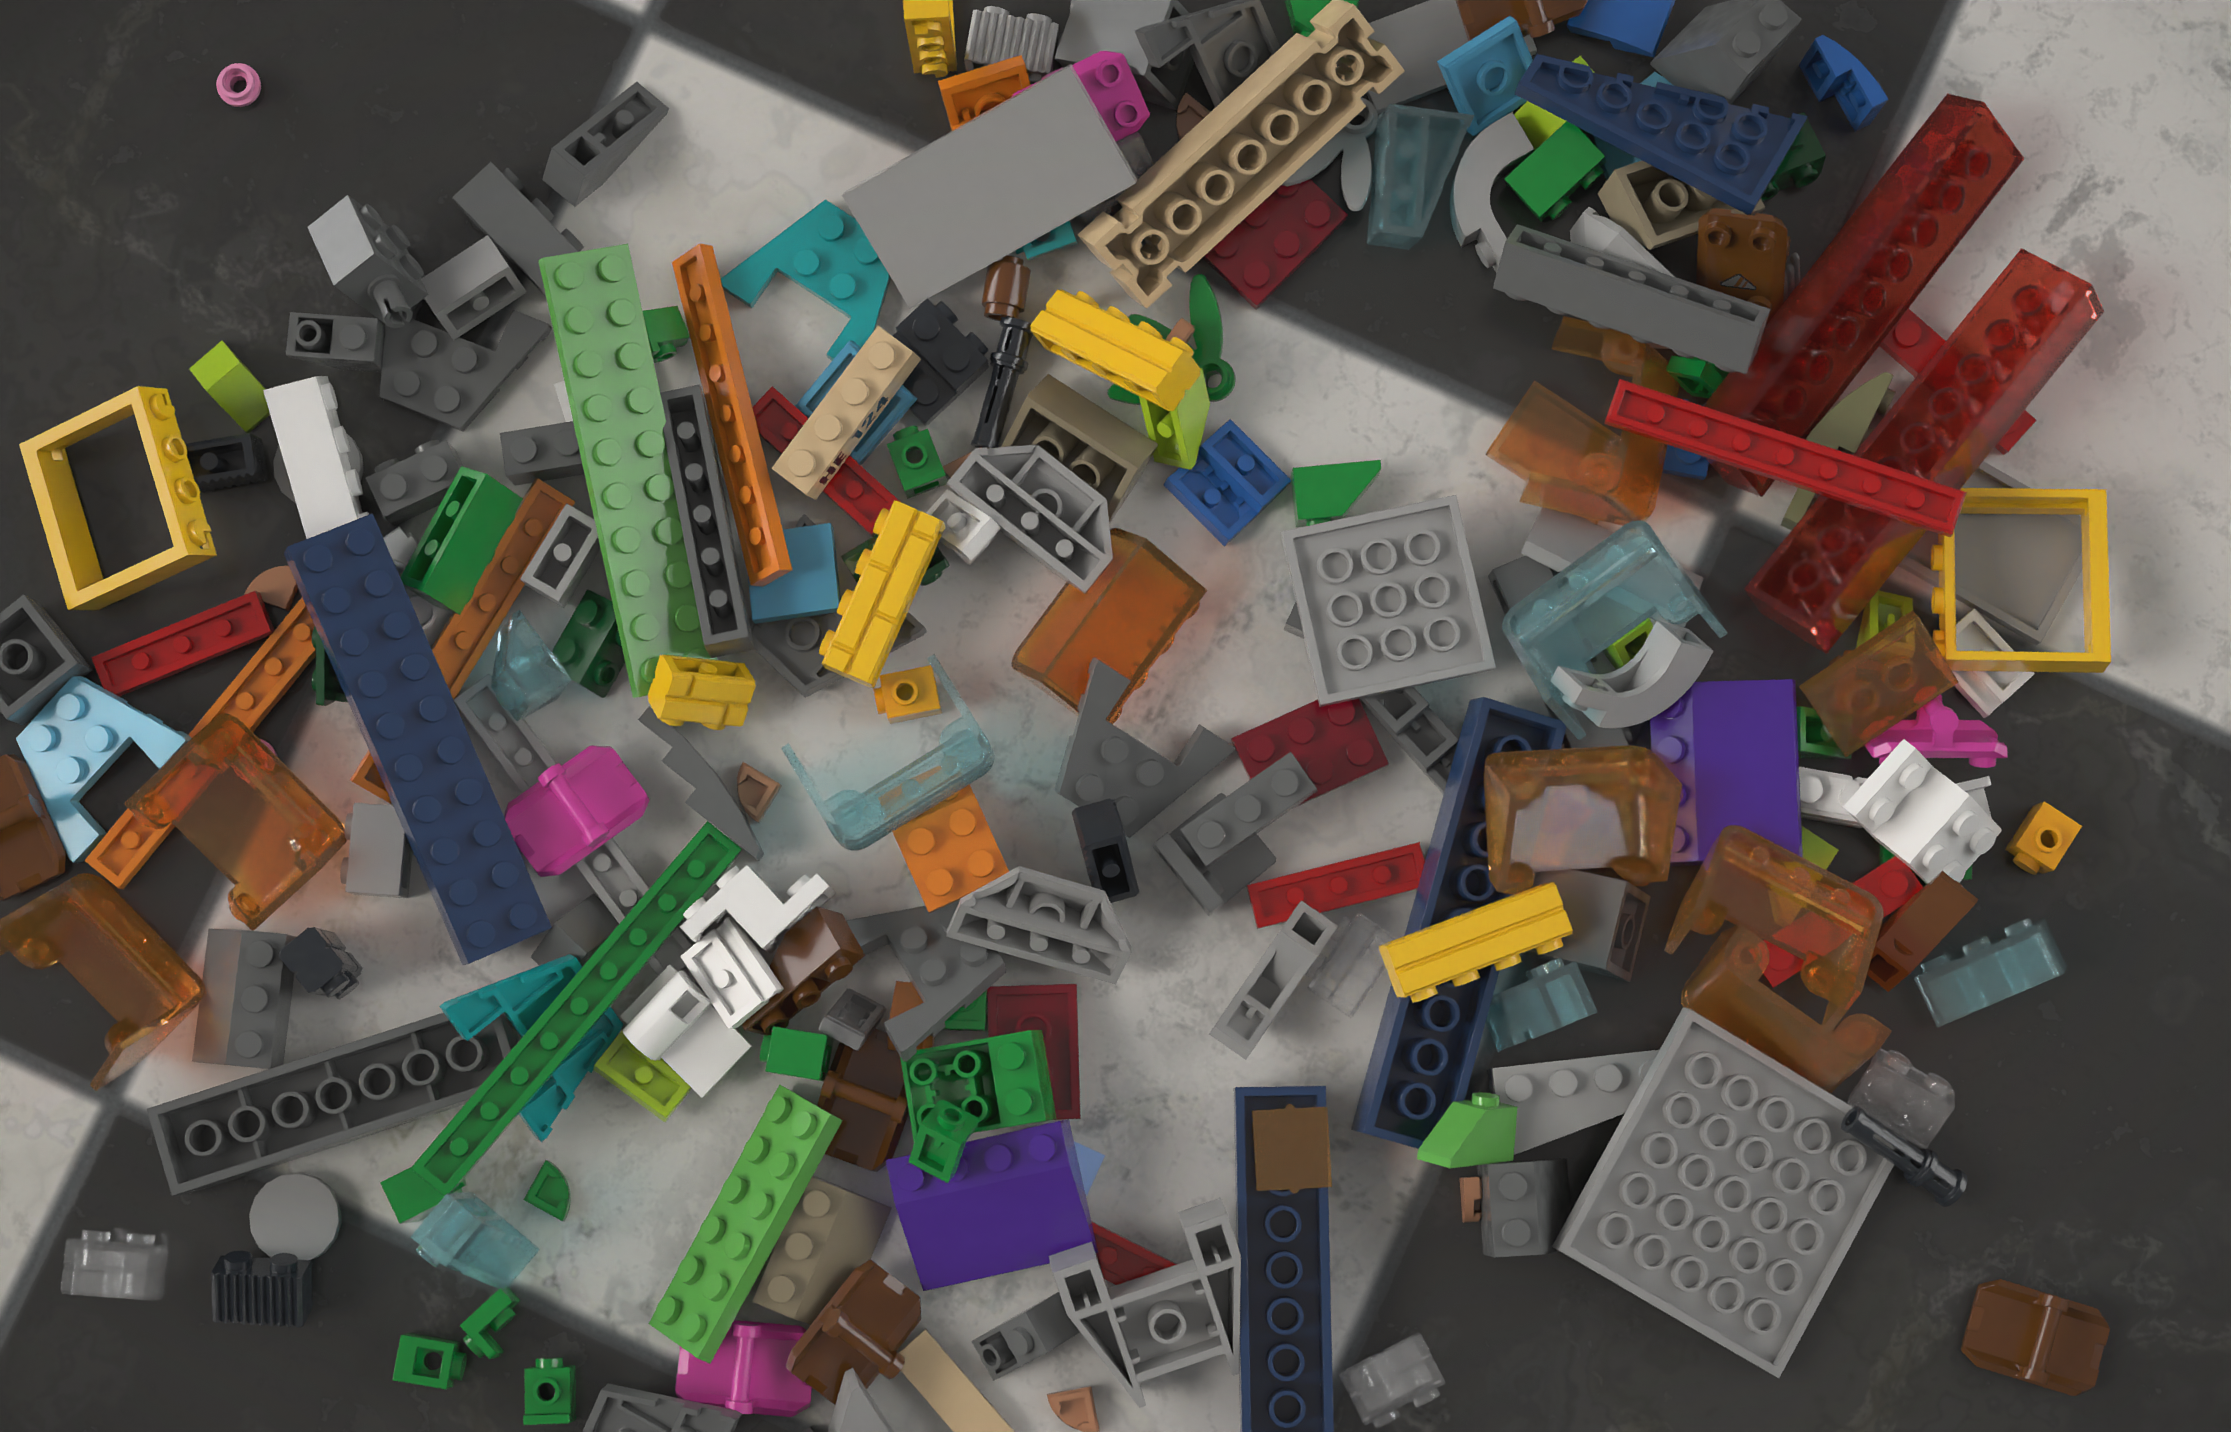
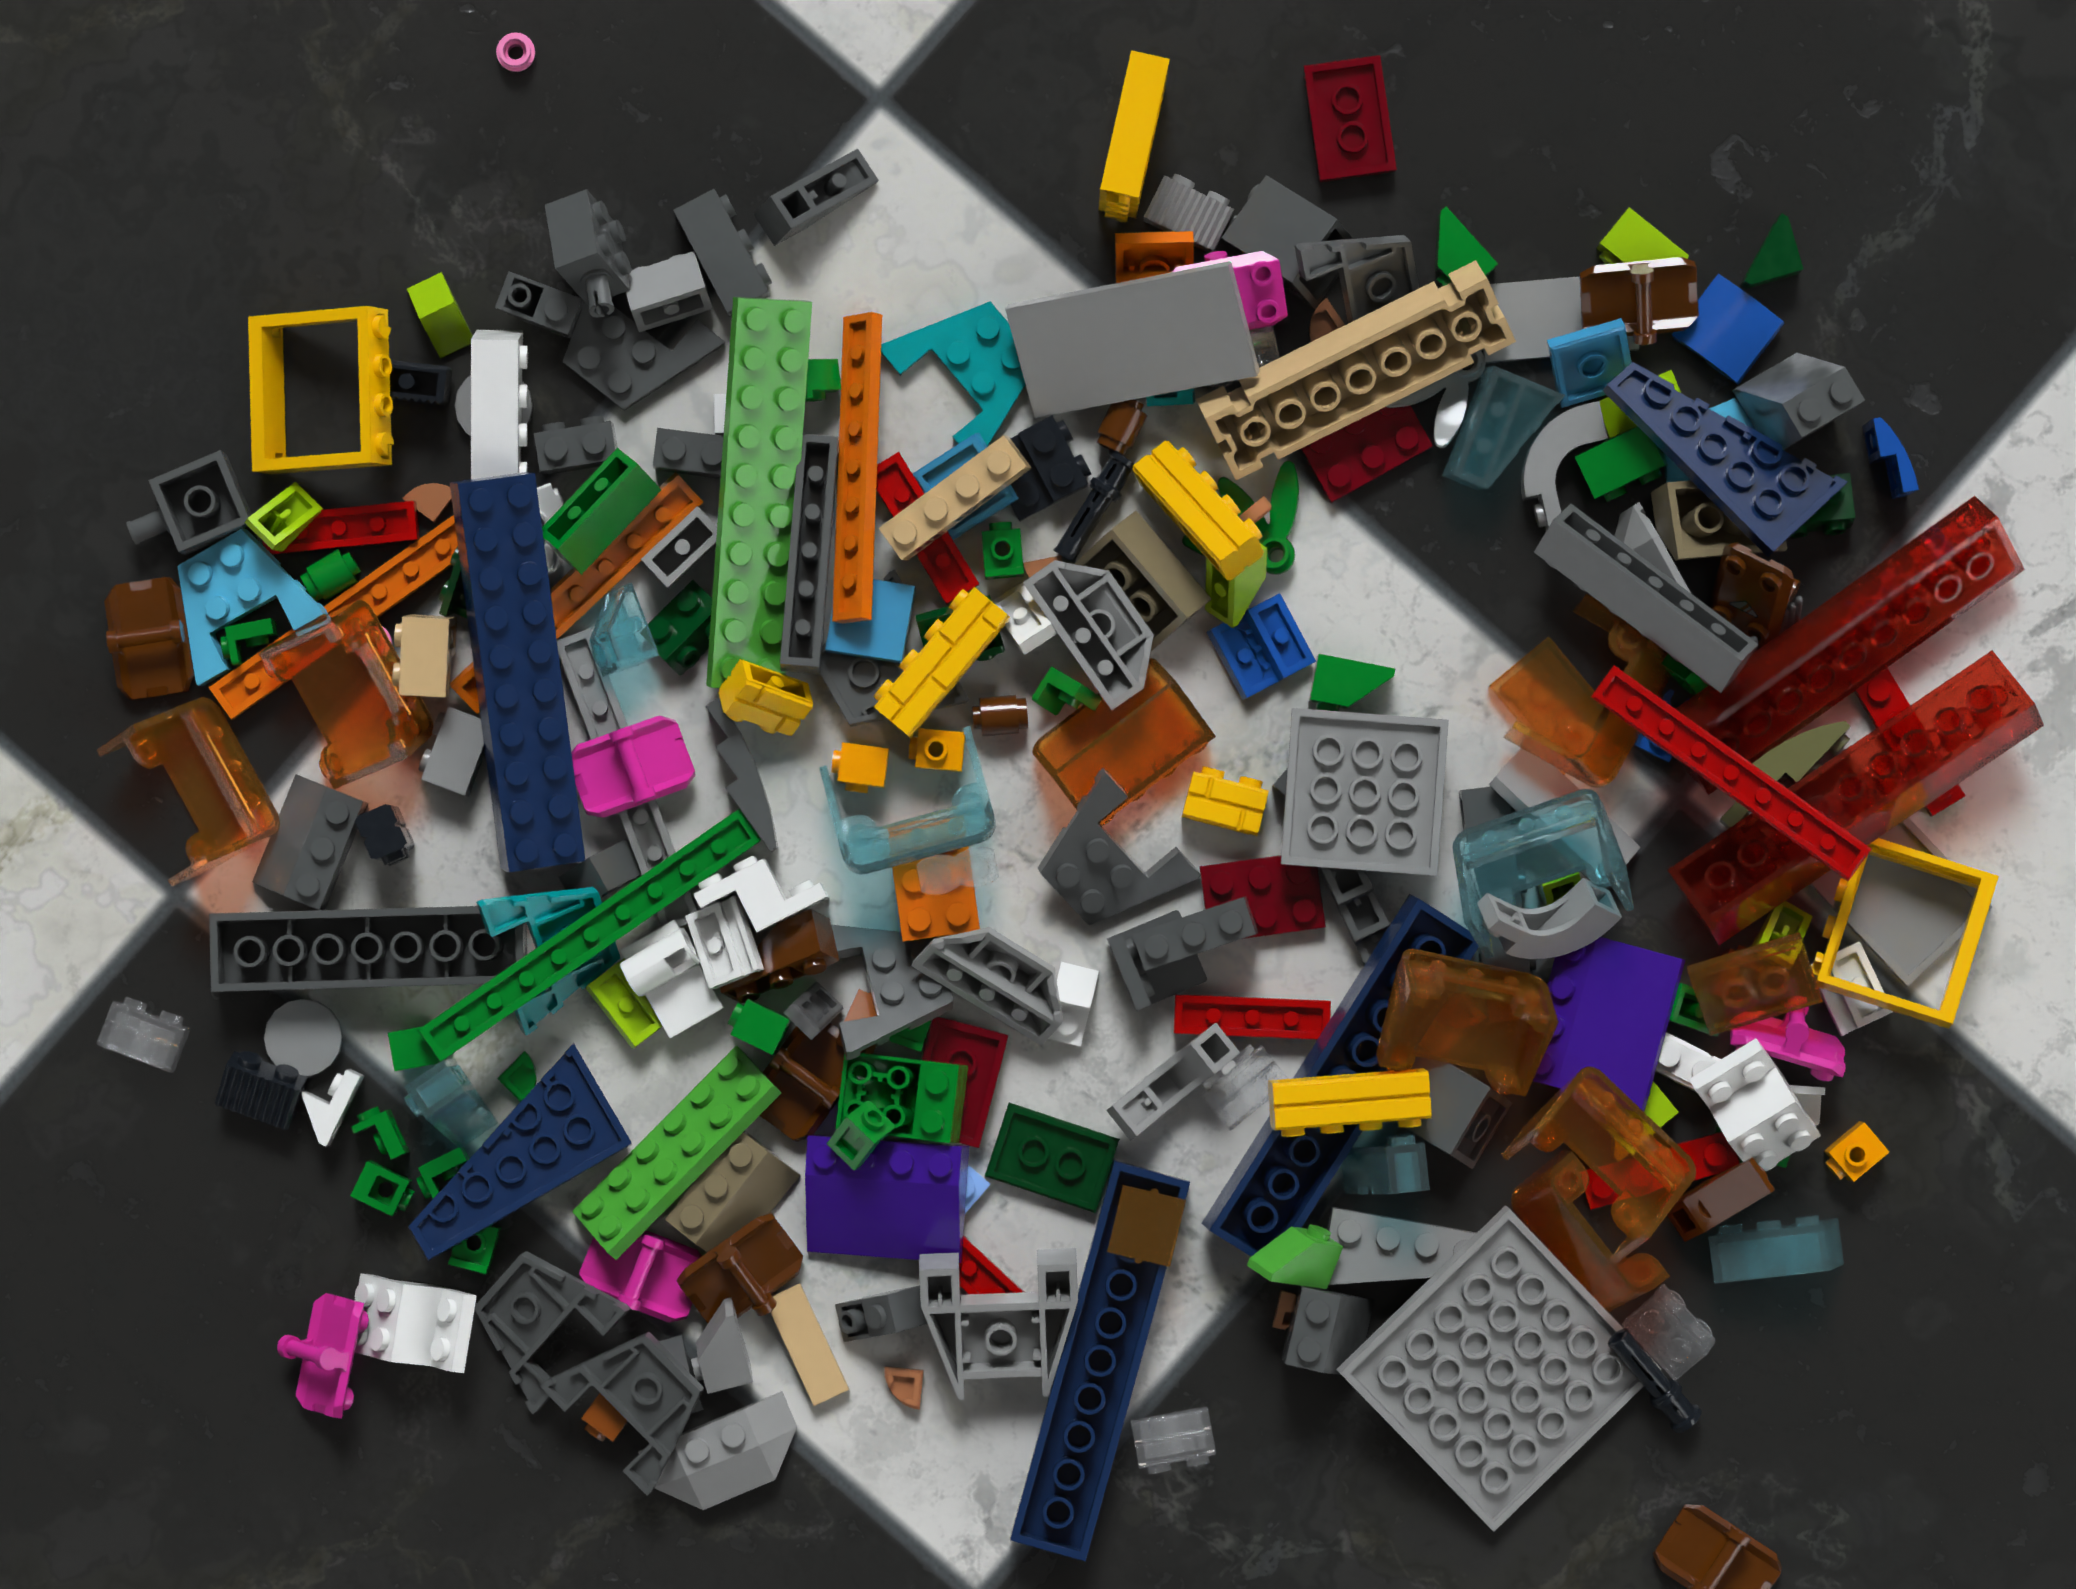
camera: 15 degrees right, 5 degrees up
(115, 649) = (284, 517): none -> lime slope
(115, 788) = (253, 633): none -> green bracket
(187, 699) = (330, 575): none -> green brick
(311, 751) = (425, 655): none -> tan brick
(347, 1297) = (326, 1115): none -> white slope
(420, 1299) = (389, 1137): none -> green bracket
(589, 1263) = (539, 1146): none -> dark blue wing
(755, 791) = (786, 793): nougat tile -> none
(828, 737) = (860, 766): none -> light orange brick
(965, 637) = (1000, 715): none -> reddish brown brick
(977, 807) = (945, 873): none -> clear brick
(1024, 588) = (1060, 689): none -> green bracket
(1105, 849) = (1065, 932): black brick -> none
(1140, 925) = (1076, 993): none -> white slope
(1164, 1105) = (1052, 1157): none -> dark green tile
(1239, 659) = (1225, 802): none -> yellow brick

